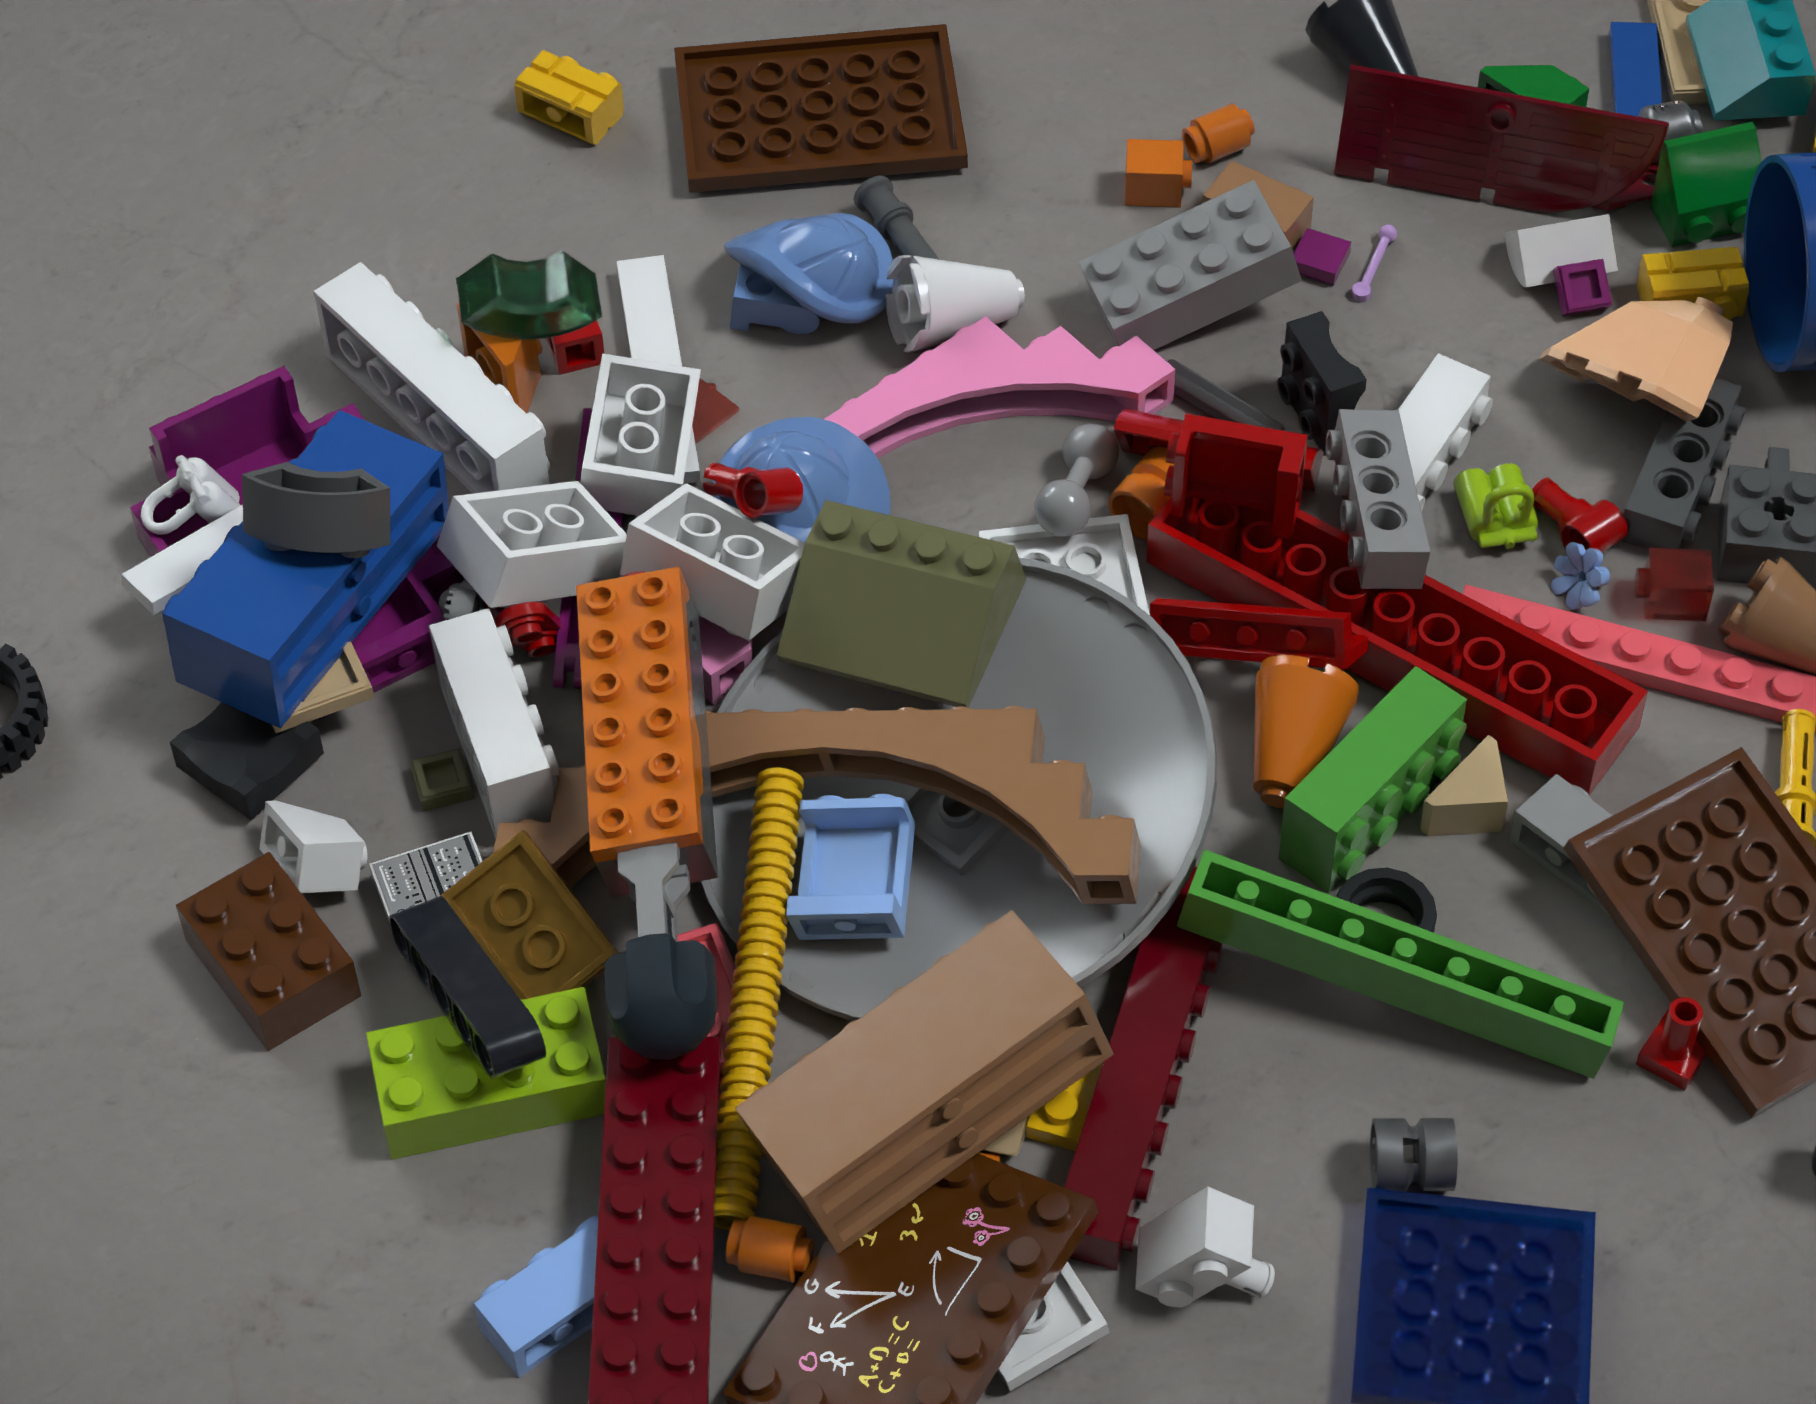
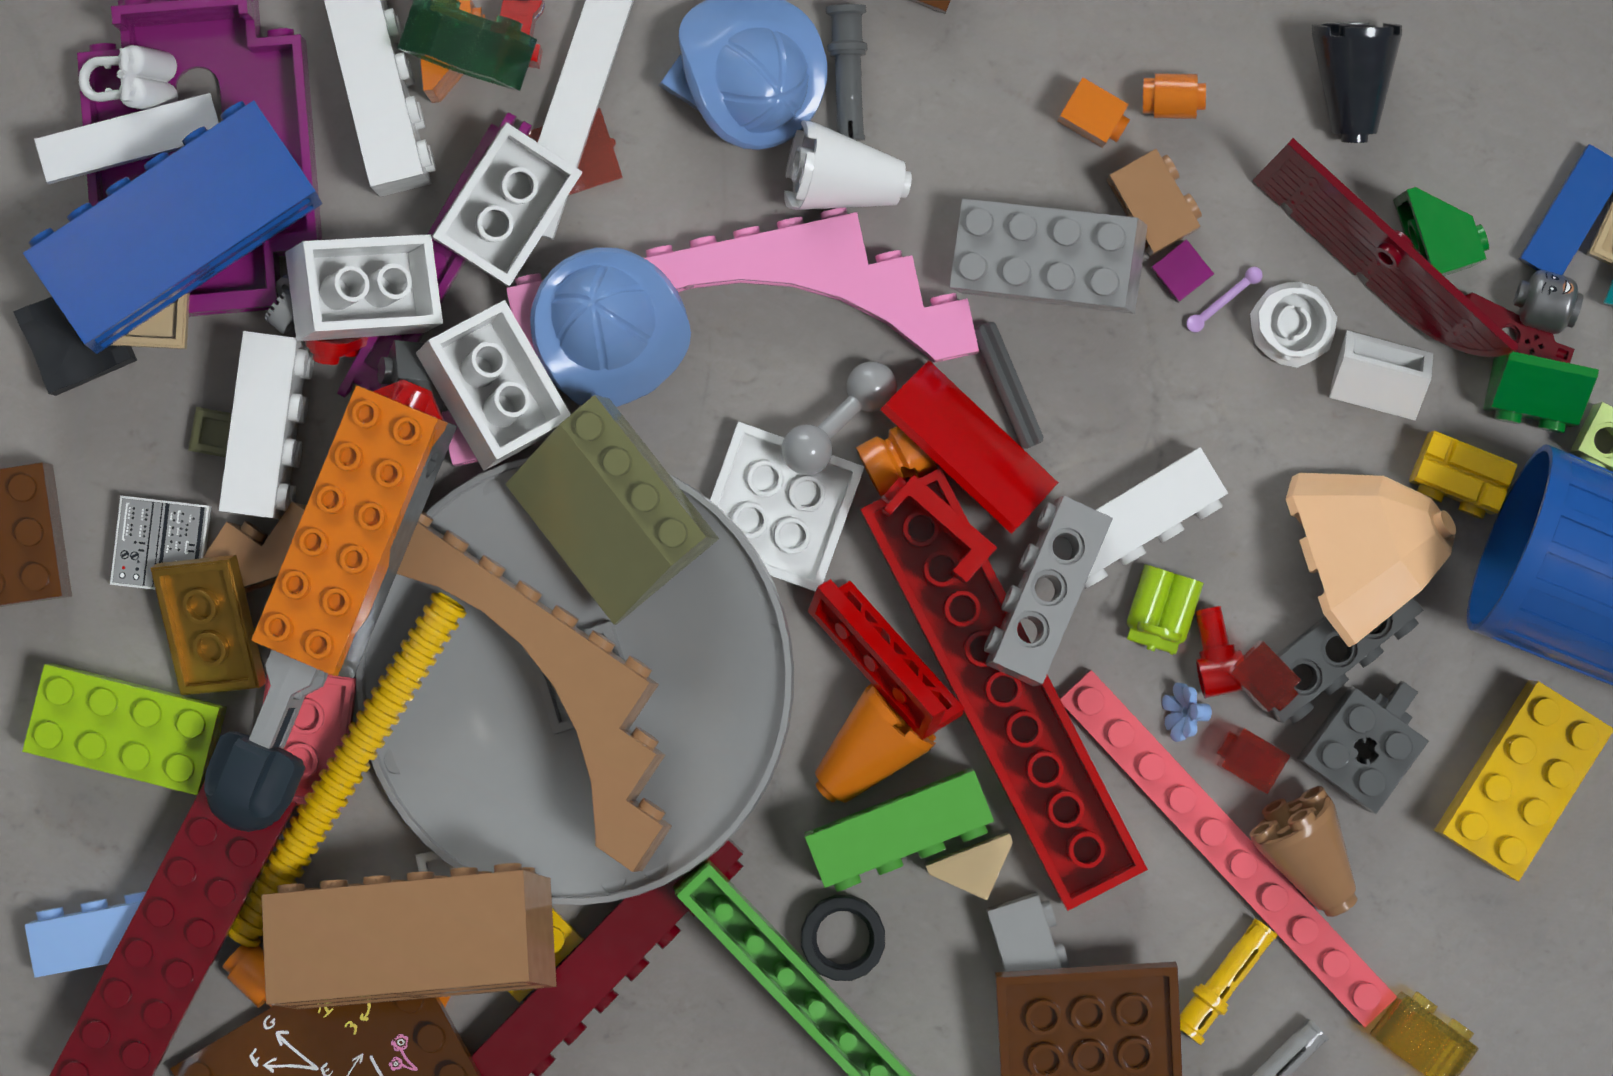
camera: 25 degrees right, 35 degrees up
(313, 848) = (82, 463): white slope -> none
(316, 510) = (173, 231): dark grey brick -> none
(467, 987) = (125, 677): black beam -> none
(756, 490) = (554, 344): red pin -> none
(853, 868) = (467, 706): light blue panel -> none
(1317, 377) = (1082, 446): black brick -> none
(1450, 250) = (1293, 323): none -> white hat
(1582, 287) = (1373, 424): magenta tile -> none
(1637, 484) = (1265, 677): none -> clear red brick

